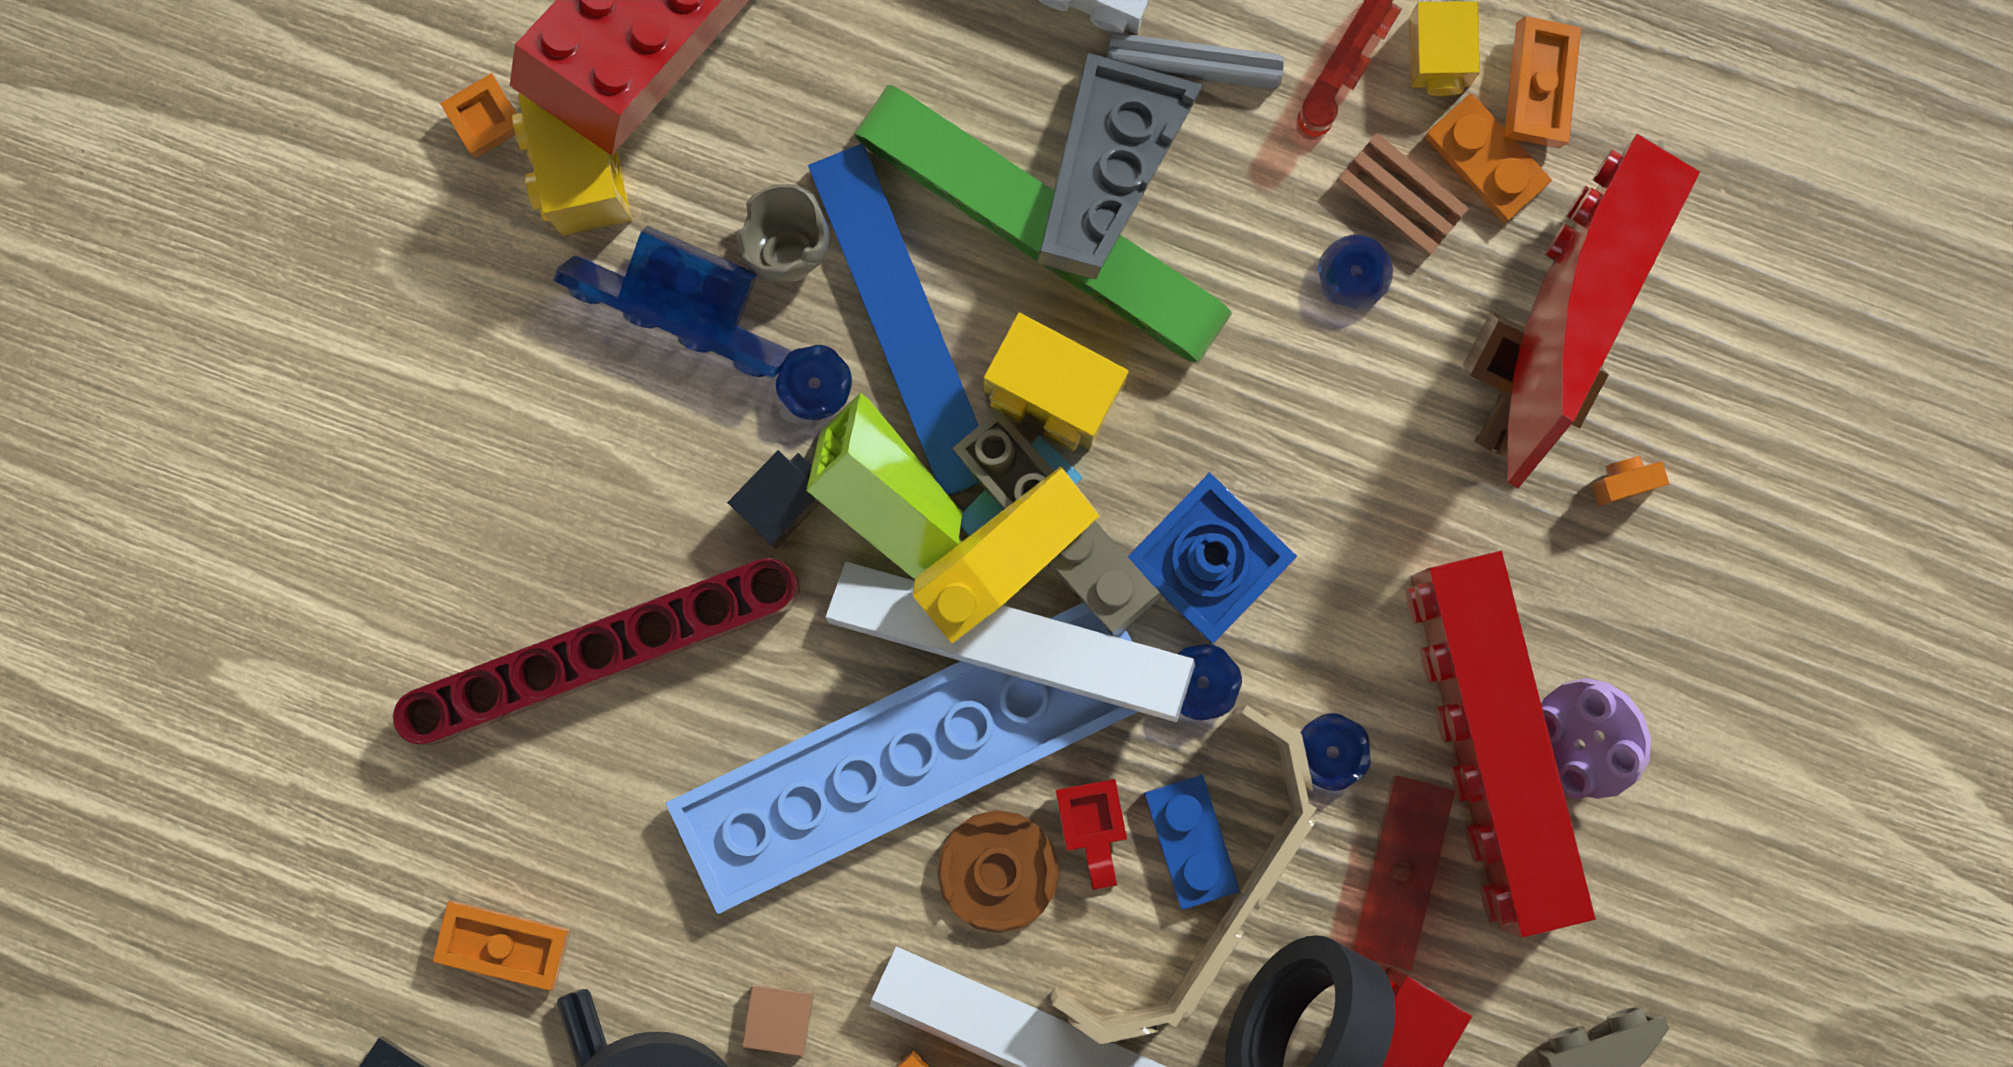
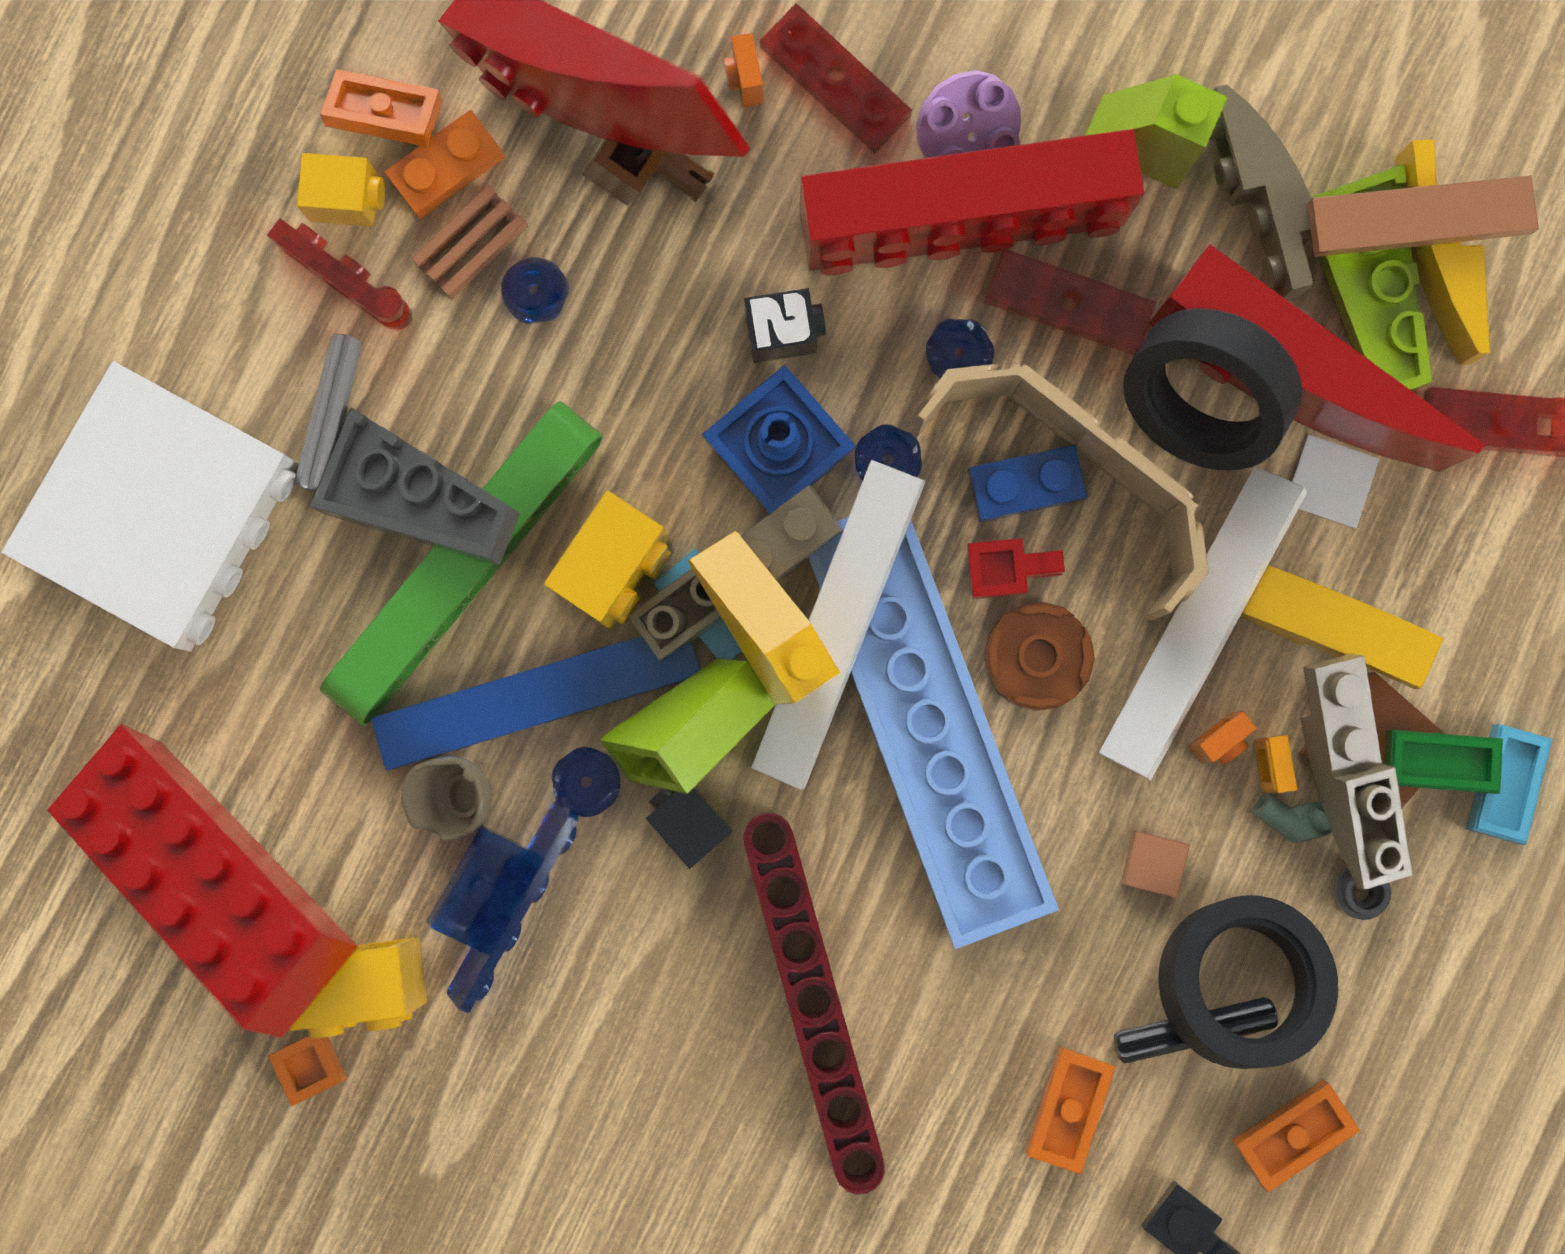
camera: 85 degrees left, 0 degrees up
(1342, 551) = (783, 325): none -> brick
(1611, 612) = (856, 100): none -> clear red tile
(1612, 957) = (1169, 122): none -> lime slope

